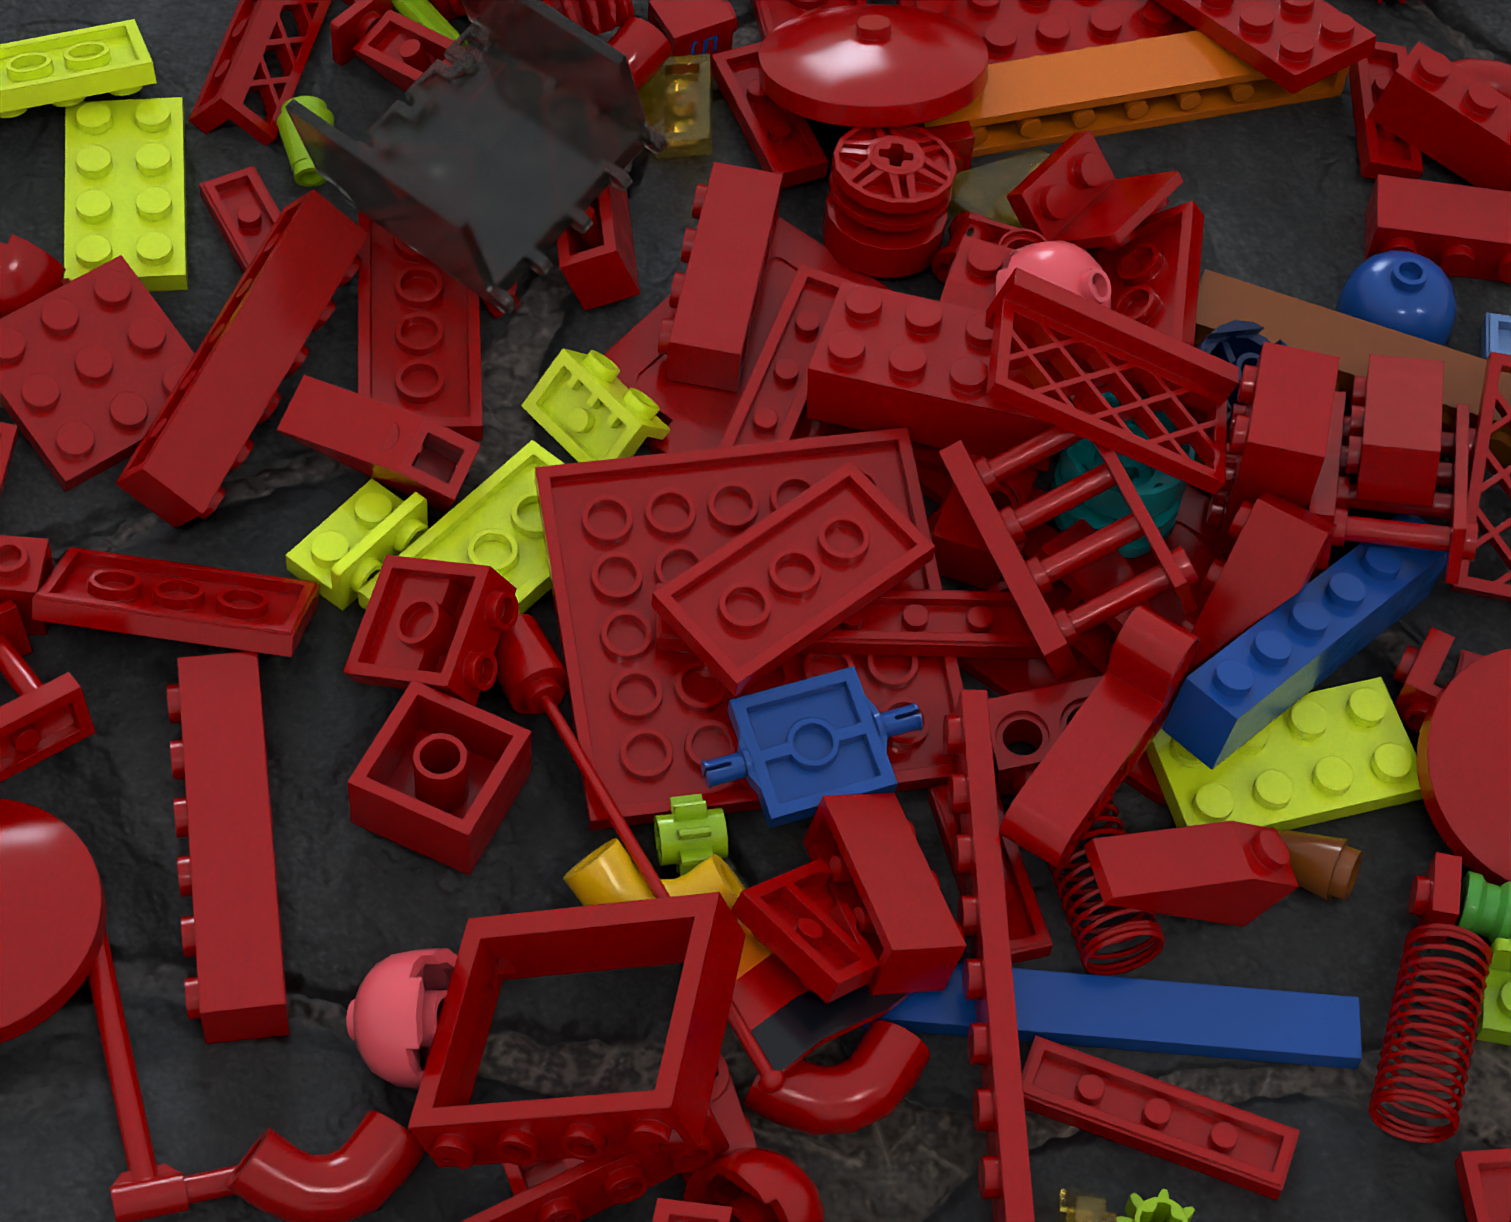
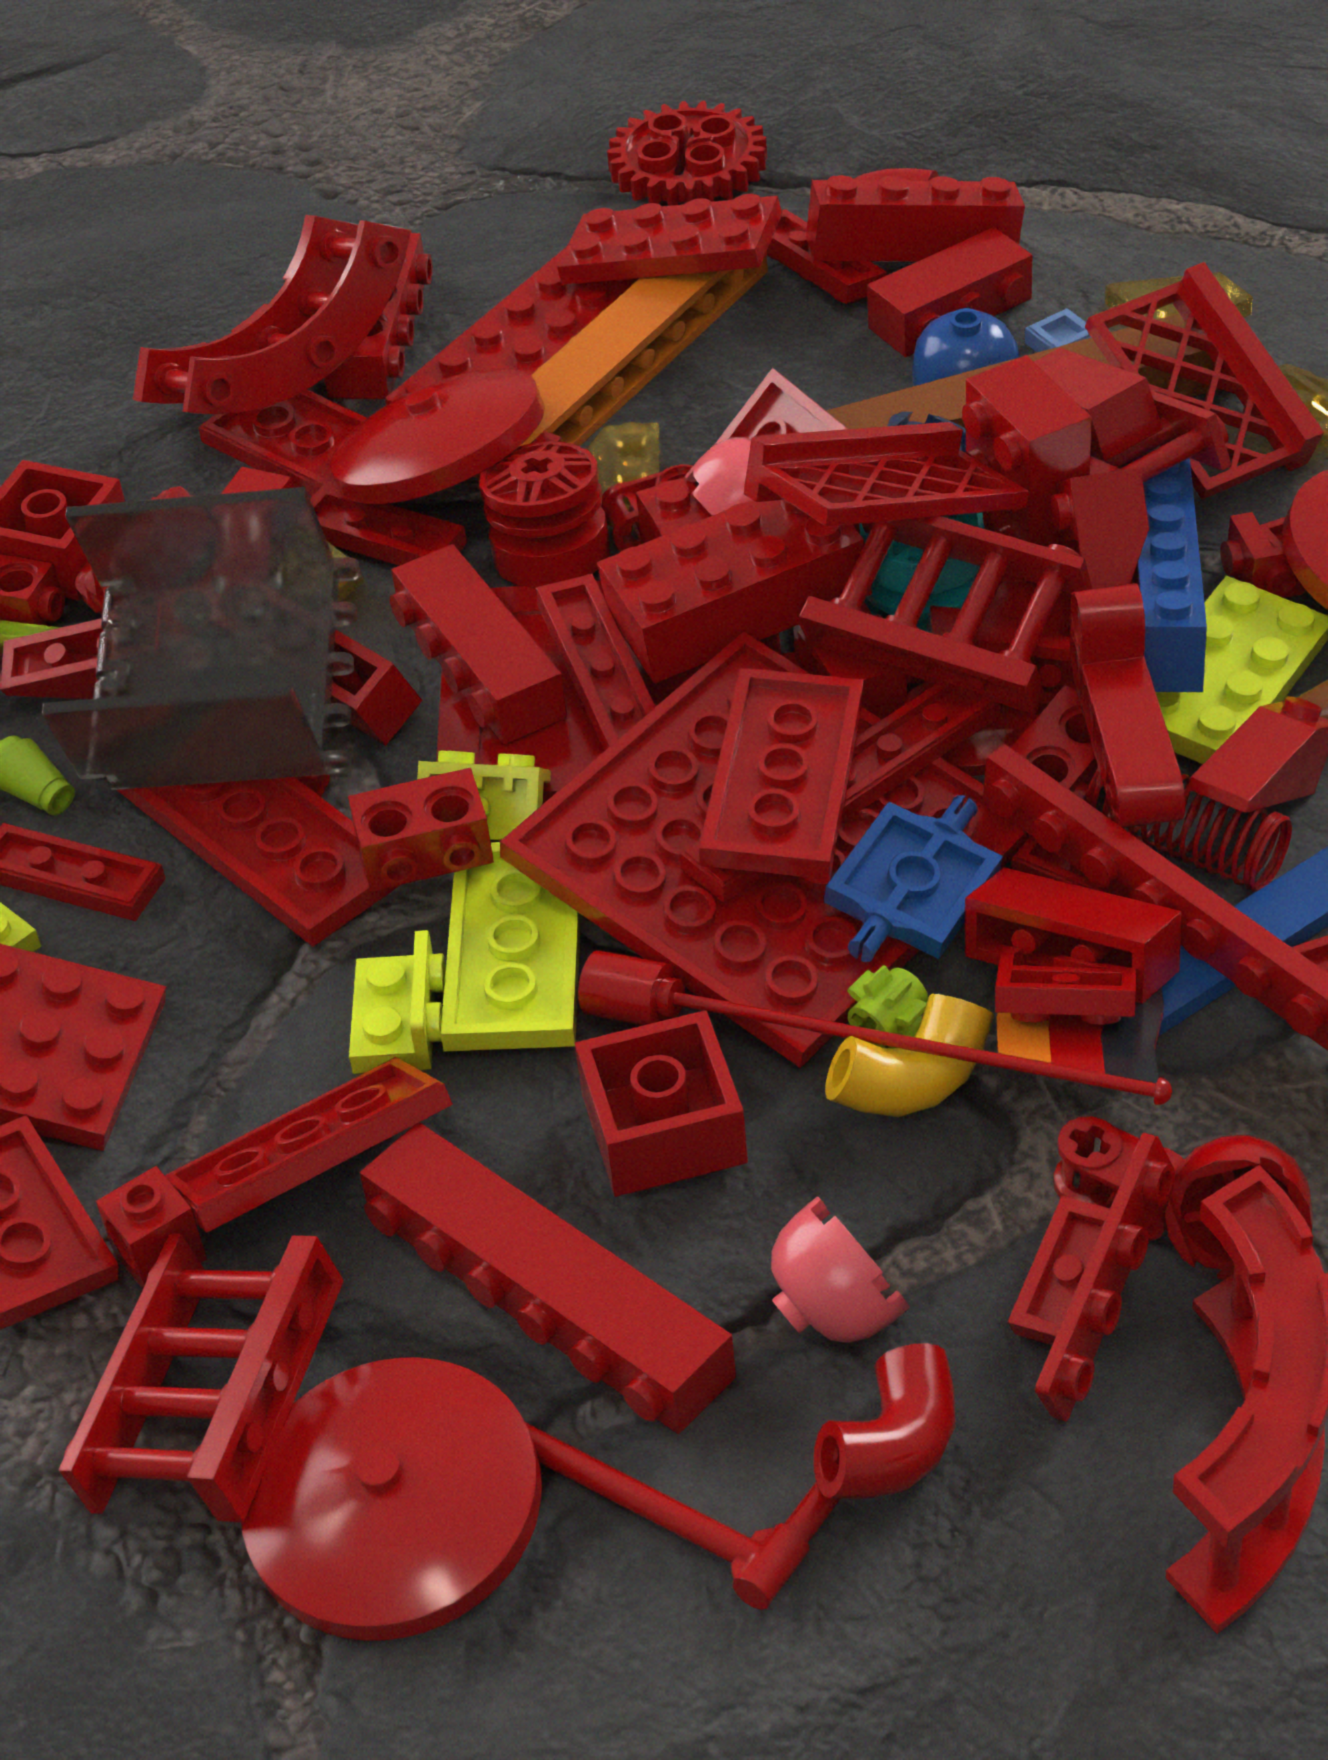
camera: 30 degrees left, 10 degrees down
(243, 361) = (167, 945): red brick -> none
(380, 441) = (349, 916): red slope -> none
(433, 627) = (540, 1000): red plate -> none
(505, 407) = (421, 829): none -> red brick
(570, 941) = (925, 1102): red window -> none
(850, 1093) = (1199, 1071): red cylinder -> none
(1082, 202) = (668, 435): red bracket -> none

